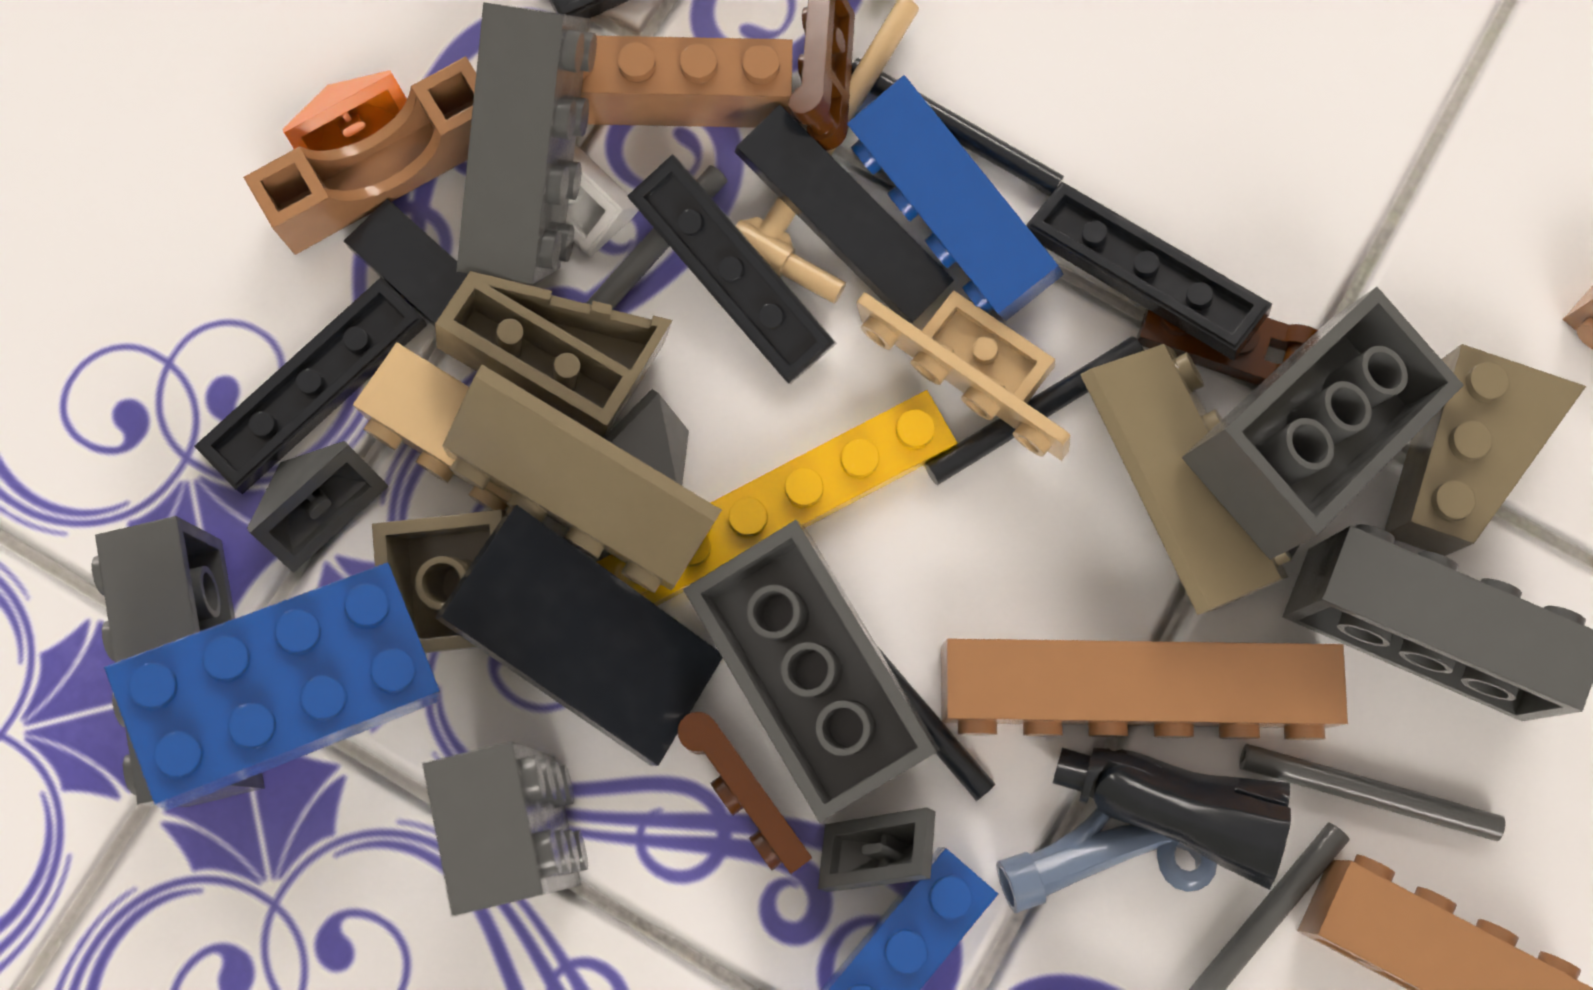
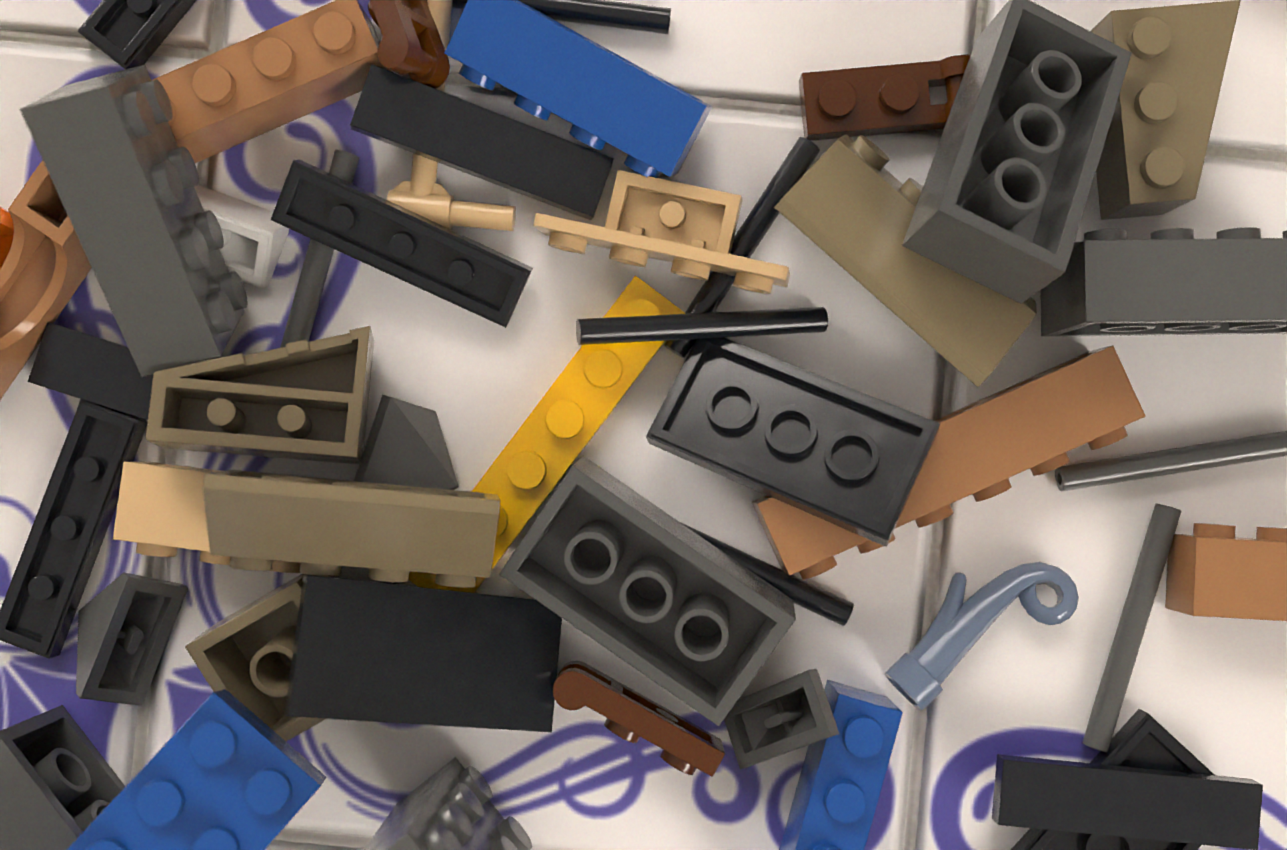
camera: 25 degrees left, 10 degrees up
(968, 459) = (700, 325): none -> black bar
(1009, 593) = (794, 436): none -> black tile
(1149, 270) = (790, 68): black tile -> none
(1221, 817) = (1062, 549): black piece -> none

